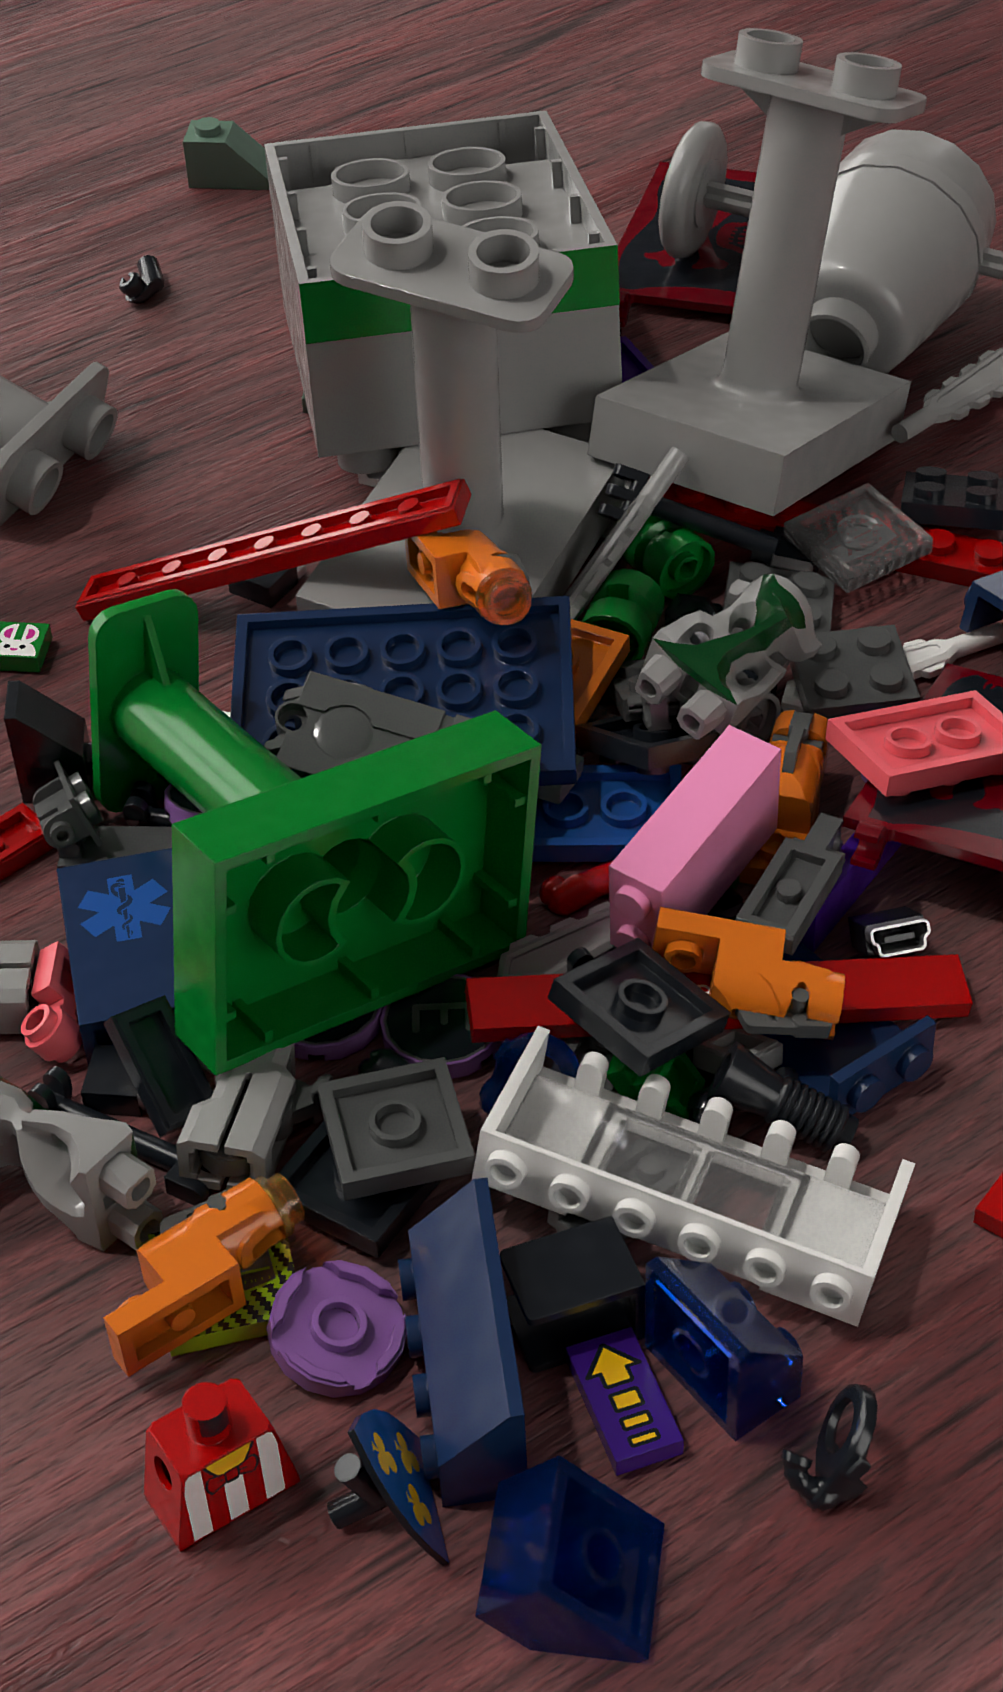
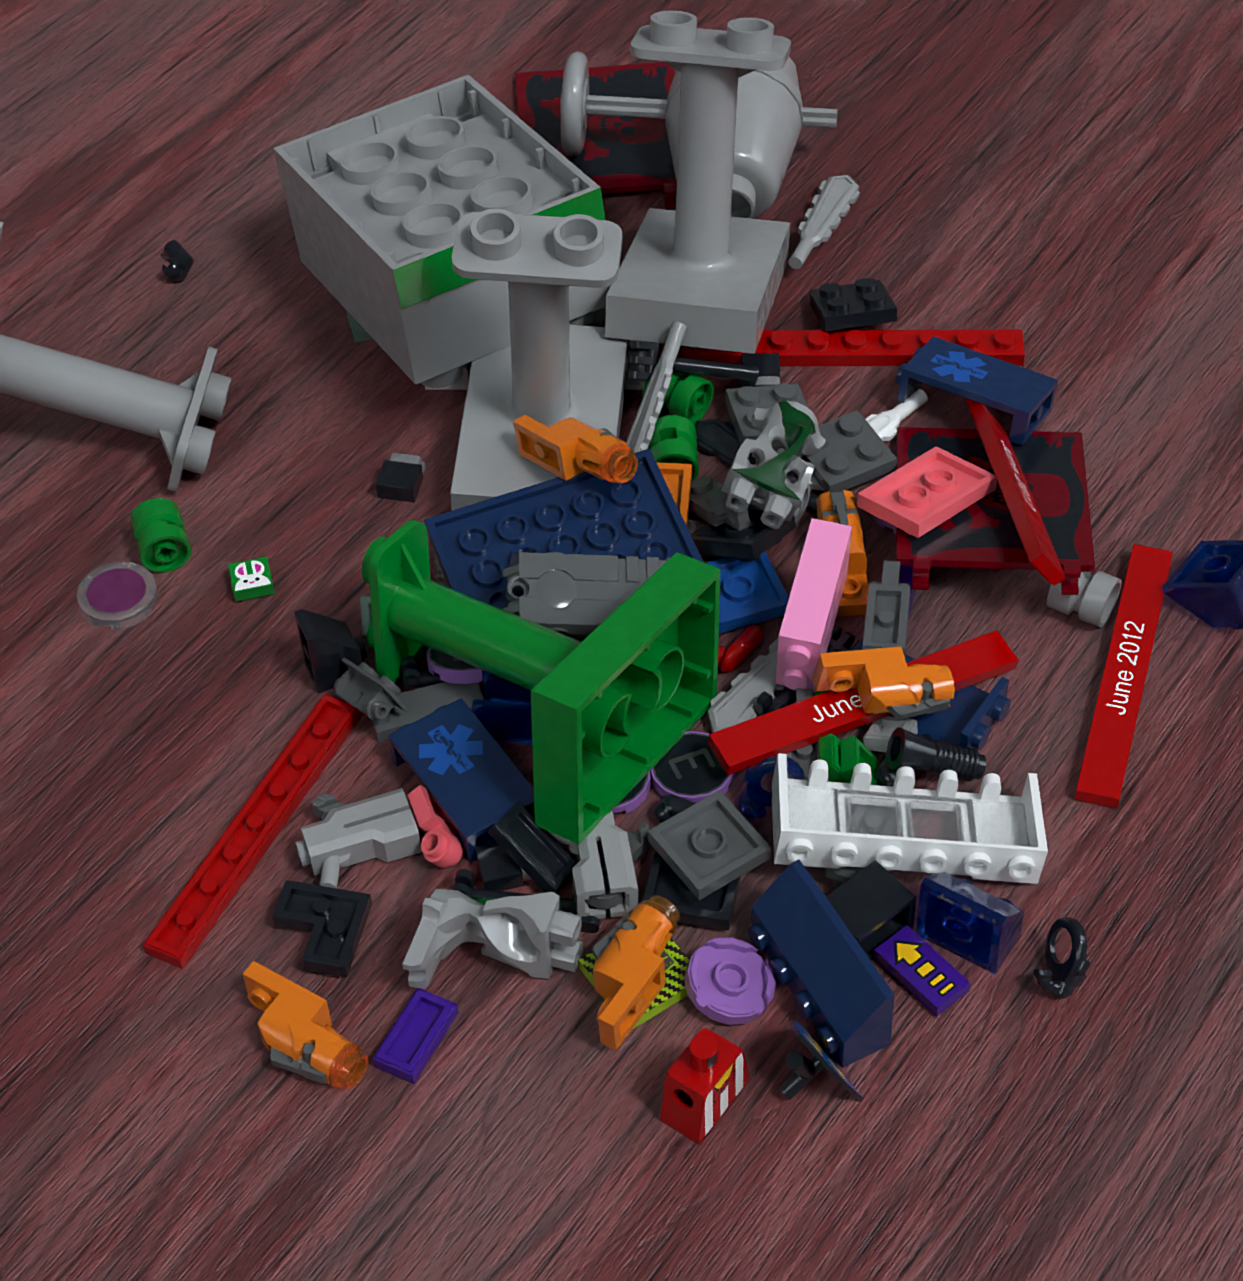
camera: 20 degrees left, 5 degrees up
(223, 156) = (187, 142): sand green slope -> none
(282, 547) = (419, 465): red tile -> none
(571, 1565) = (940, 1075): clear blue slope -> none
(638, 1006) = (830, 722): black plate -> none
(858, 537) = (804, 350): clear tile -> none
(889, 932) = (948, 627): piece -> none

